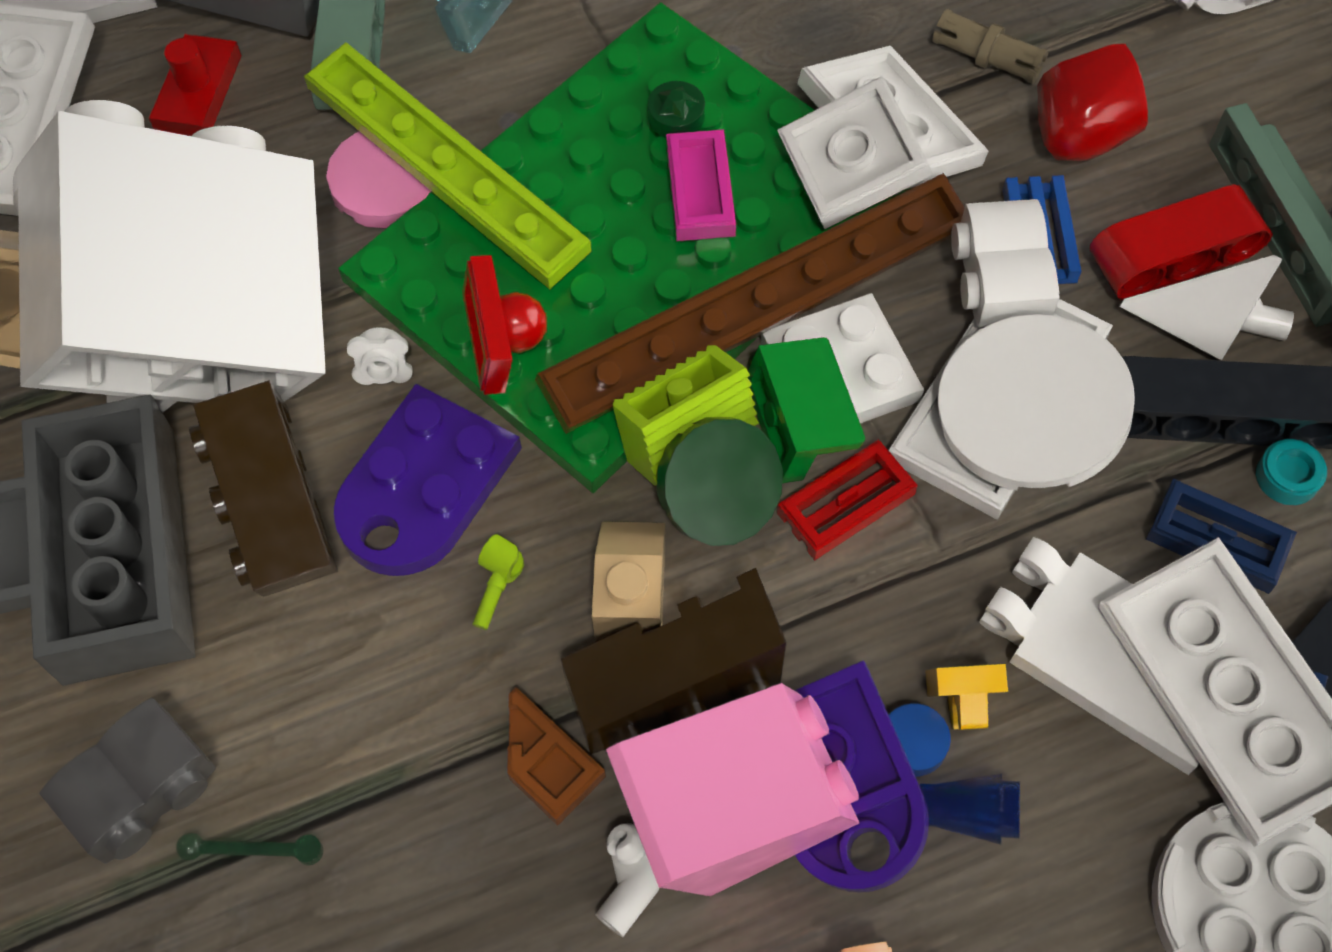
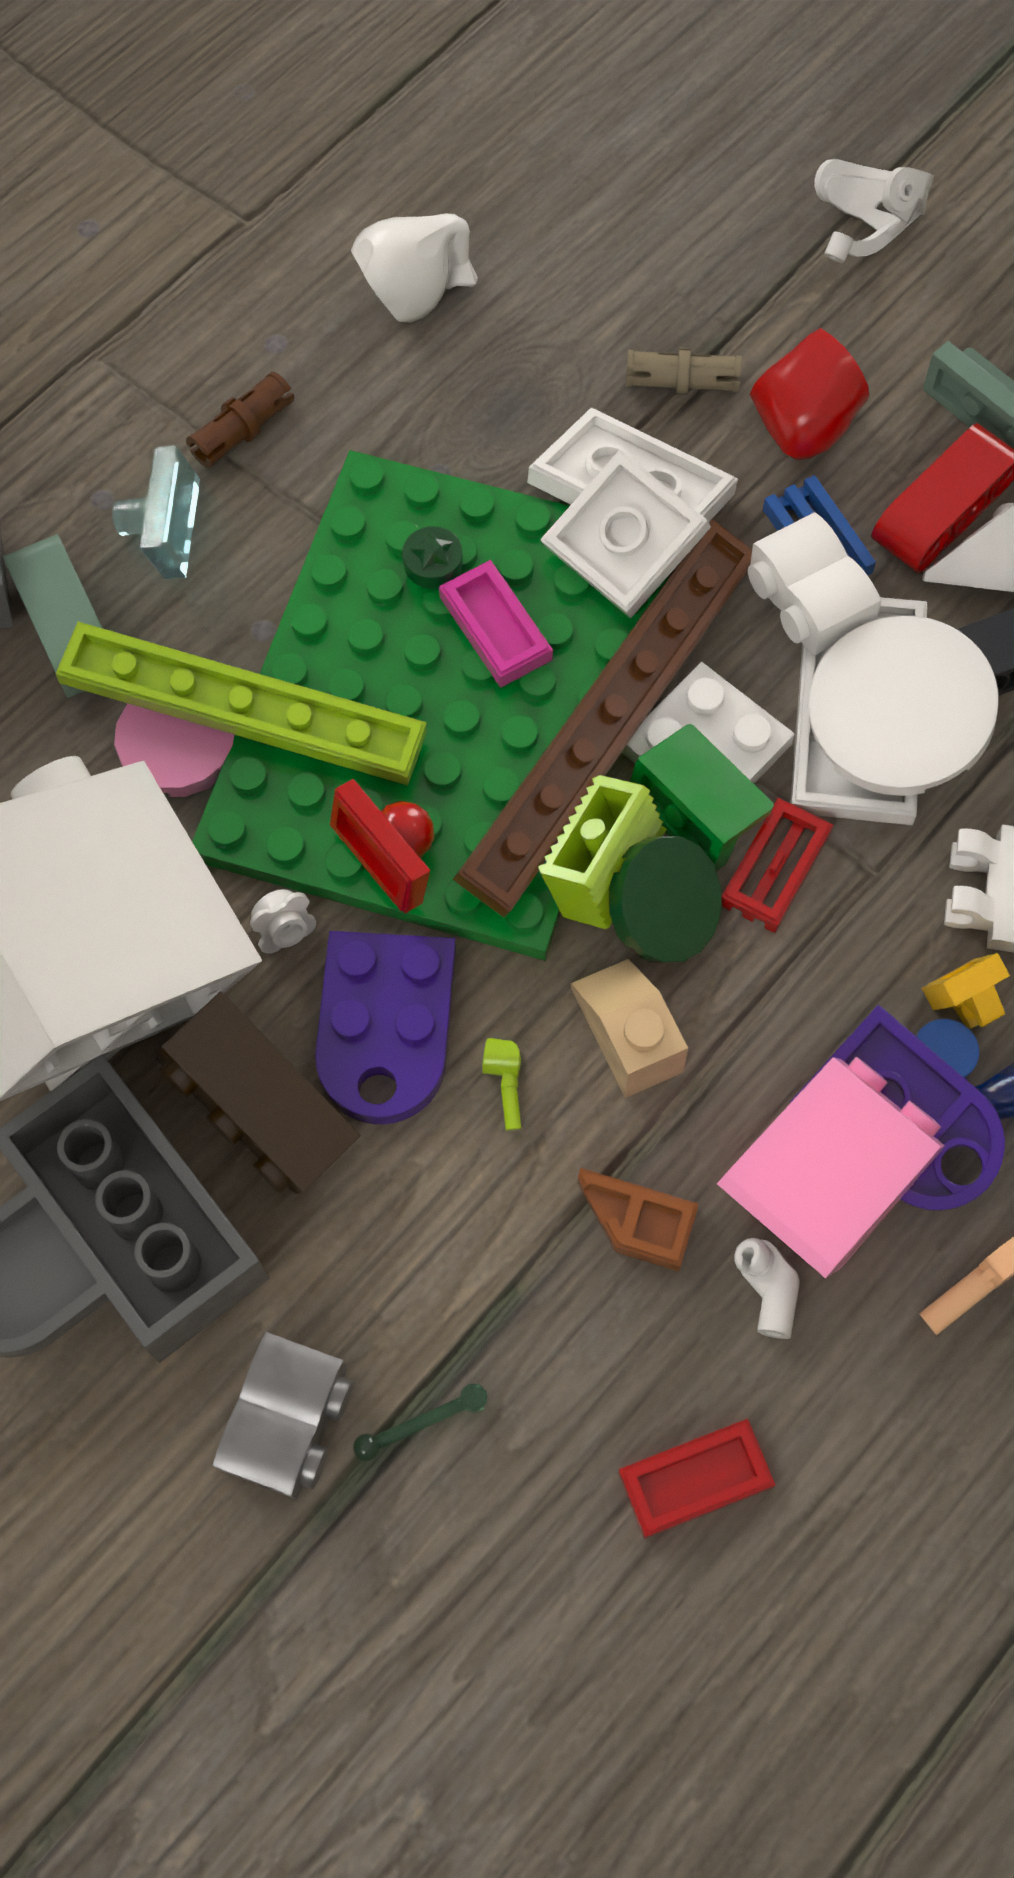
camera: 25 degrees left, 5 degrees up
(679, 669) = (721, 1086): dark brown wedge -> none

